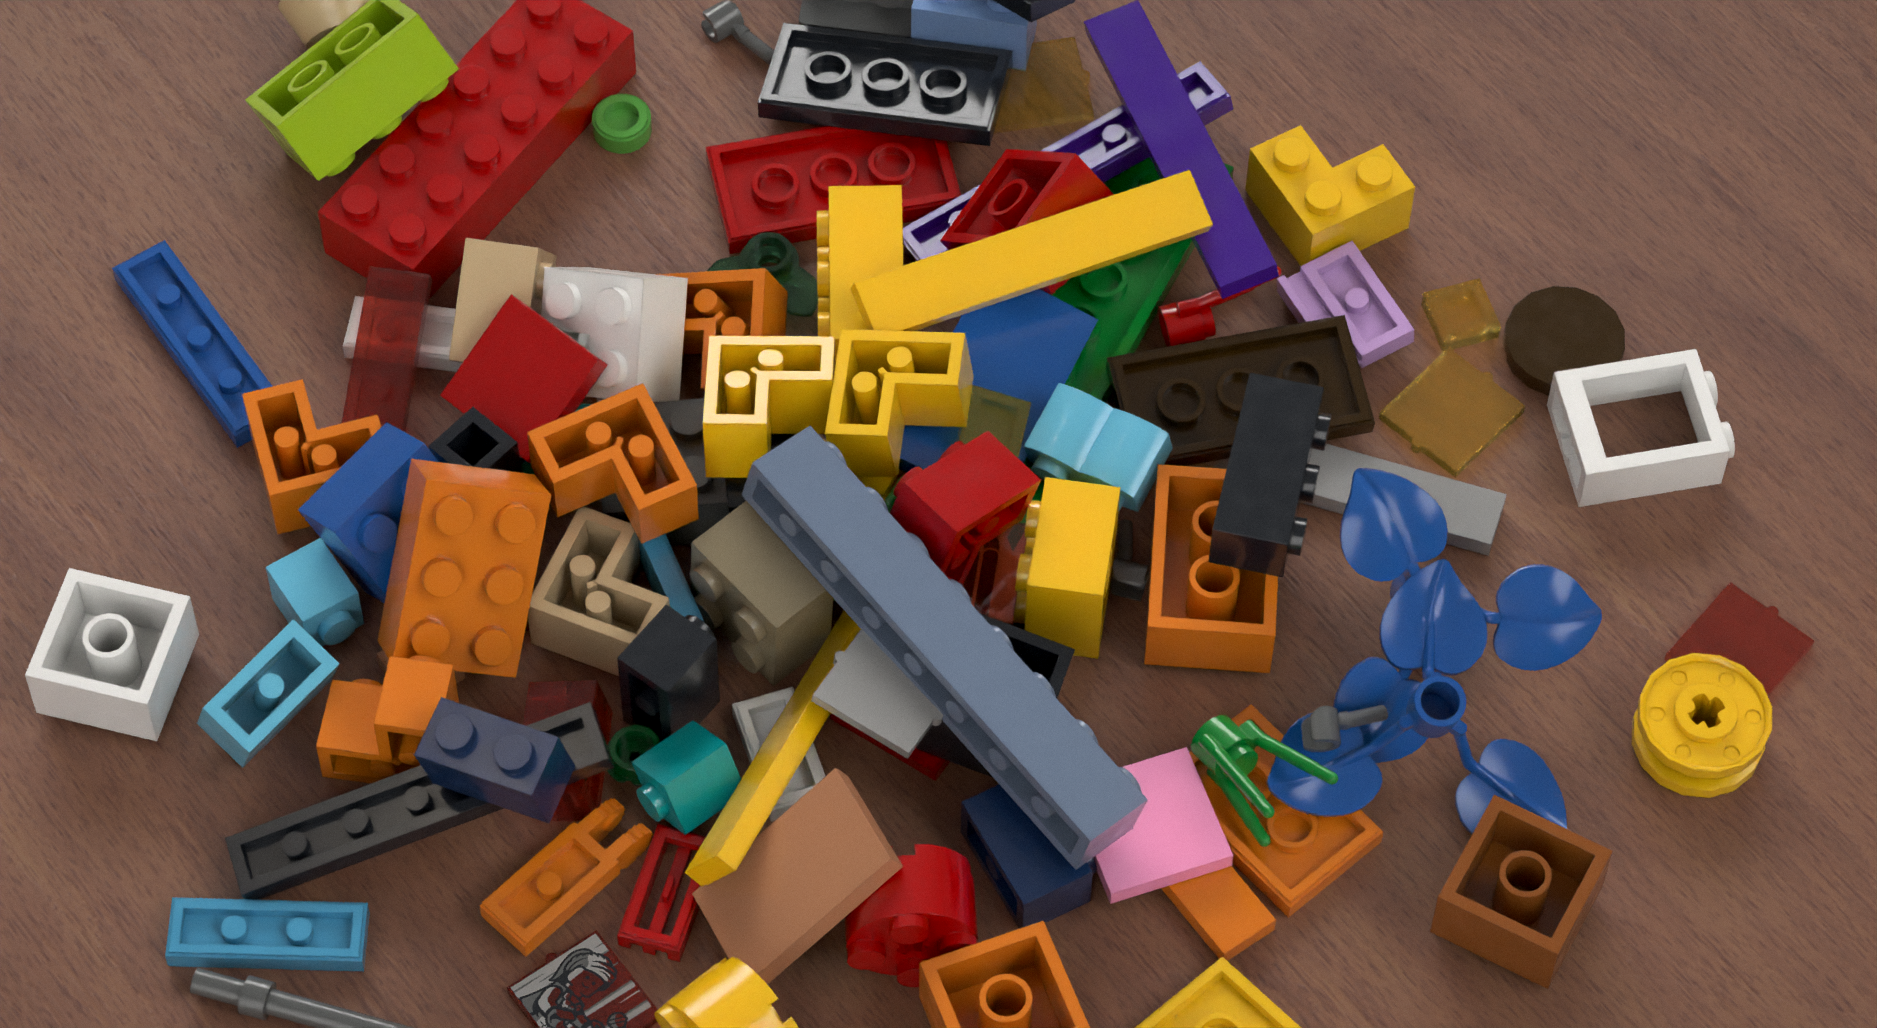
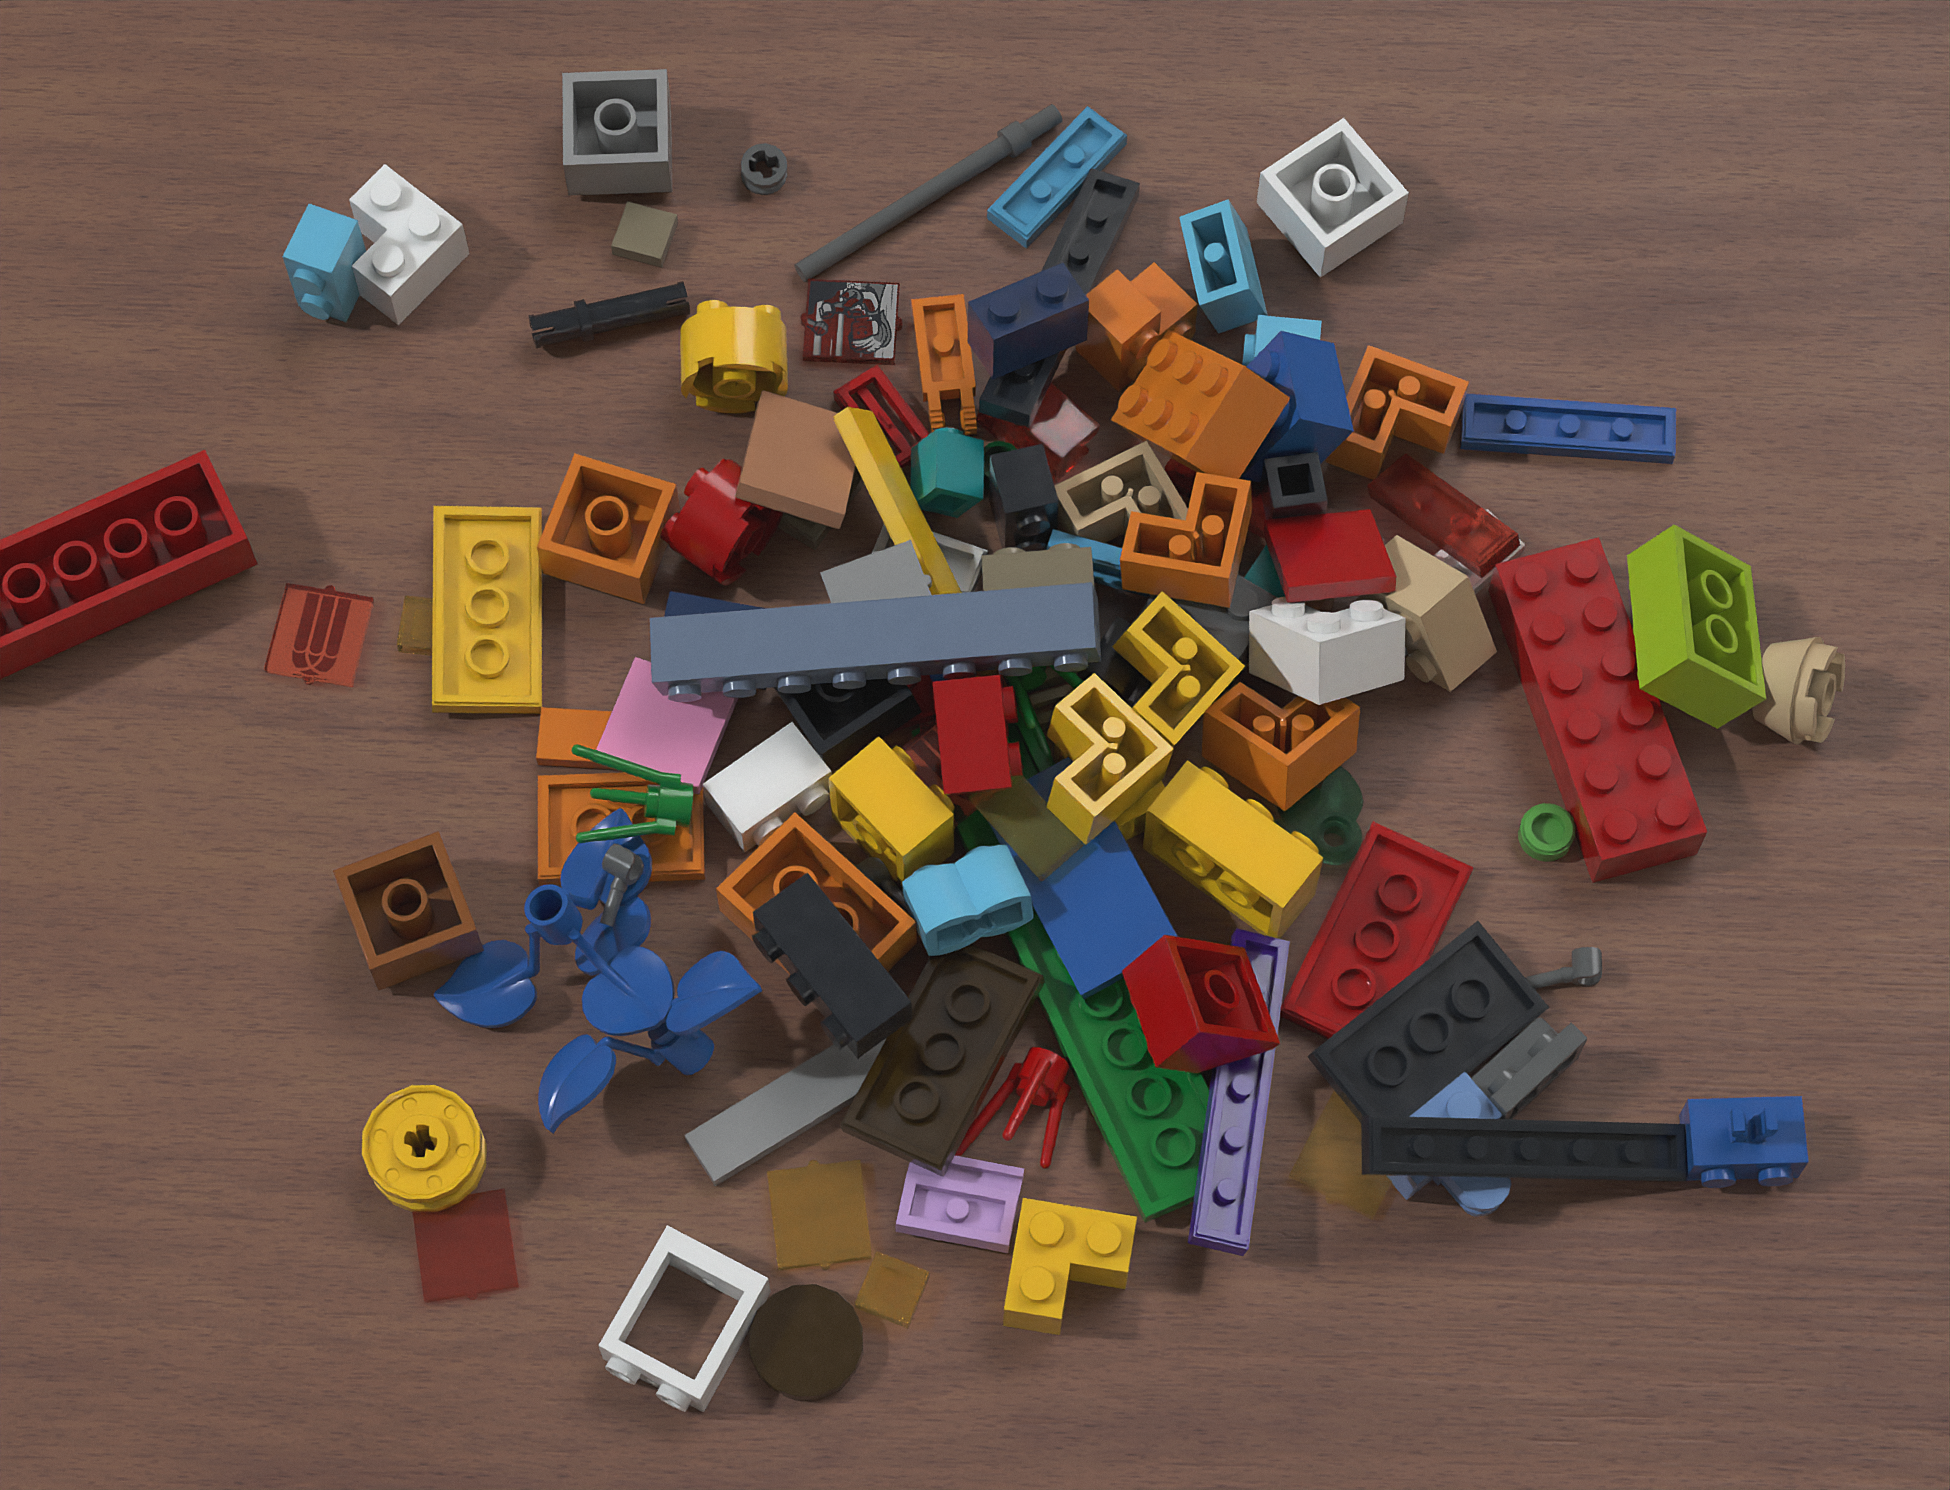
camera: 130 degrees right, 10 degrees up
(1033, 255) = (1138, 942): yellow tile -> none
(1131, 702) = (768, 787): none -> white brick
(1178, 143) = (1173, 1154): dark purple tile -> none

